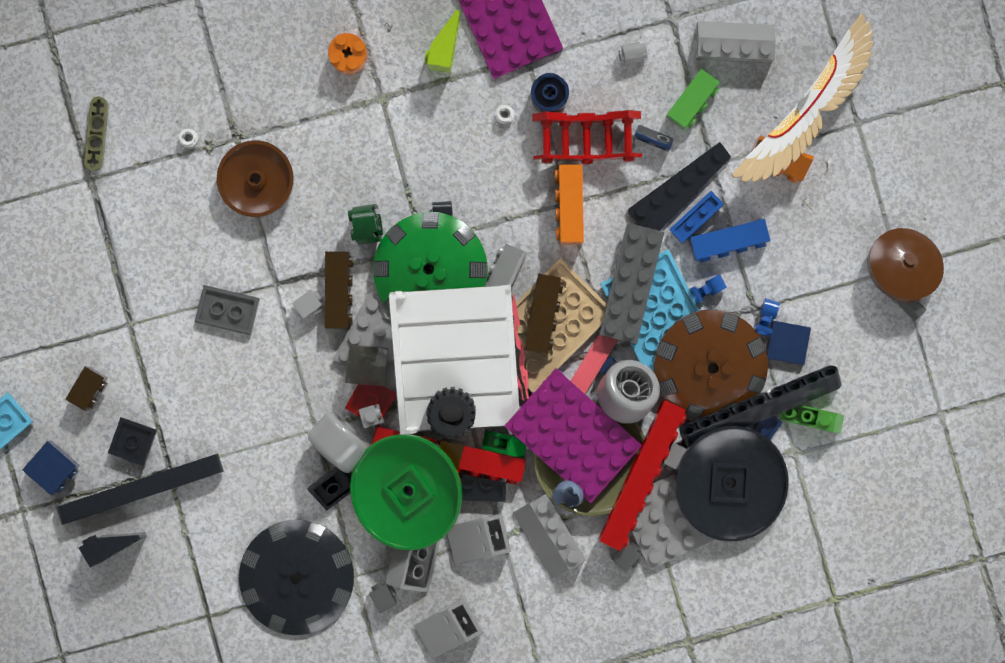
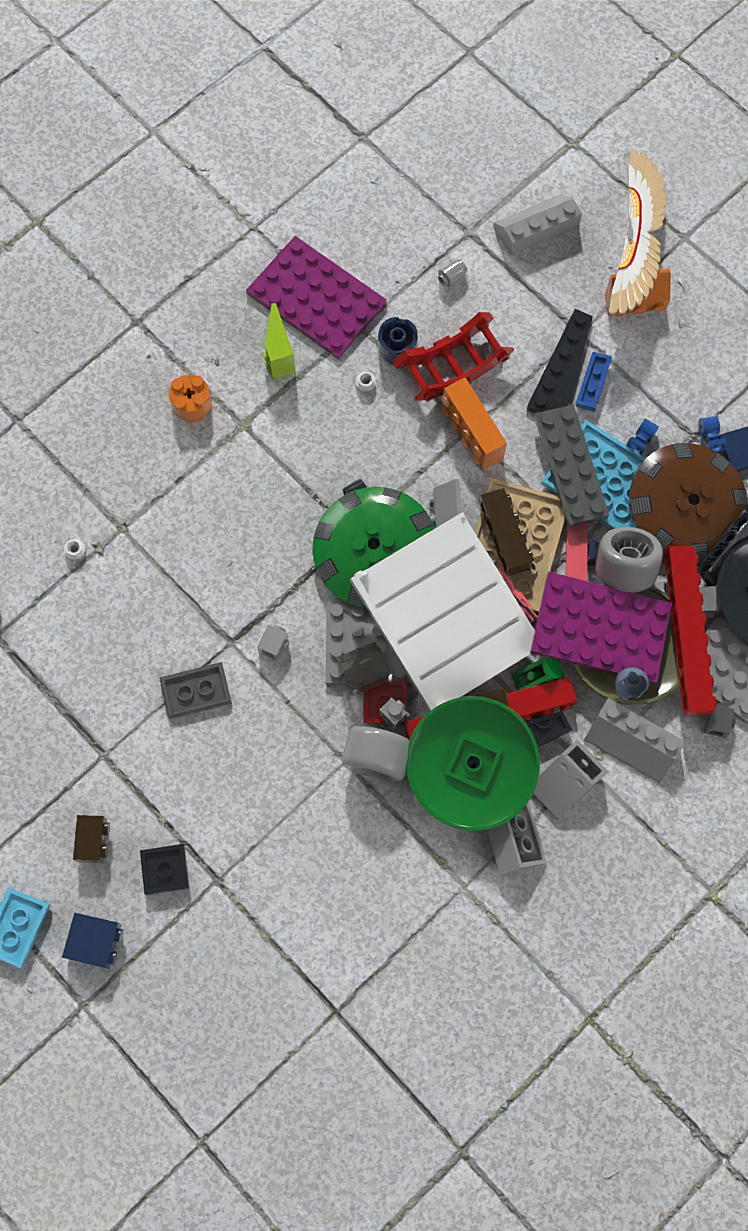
camera: 30 degrees left, 15 degrees down
(101, 548) = (190, 993): black slope -> none
(139, 489) = (195, 916): black beam -> none
(255, 178) = (159, 550): reddish brown dish -> none
(300, 549) = (399, 953): black dish -> none
(331, 488) = (393, 807): black slope -> none
(337, 290) = (295, 615): dark brown brick -> none
(366, 224) = (289, 538): dark green brick -> none
(383, 596) = (505, 890): dark grey brick -> none
(446, 428) = (490, 658): black tyre -> none
(449, 628) = (590, 885): light grey slope -> none
(653, 138) = (515, 336): slope -> none
(693, 100) = (530, 285): bright green brick -> none
(729, 239) = (636, 385): blue brick -> none

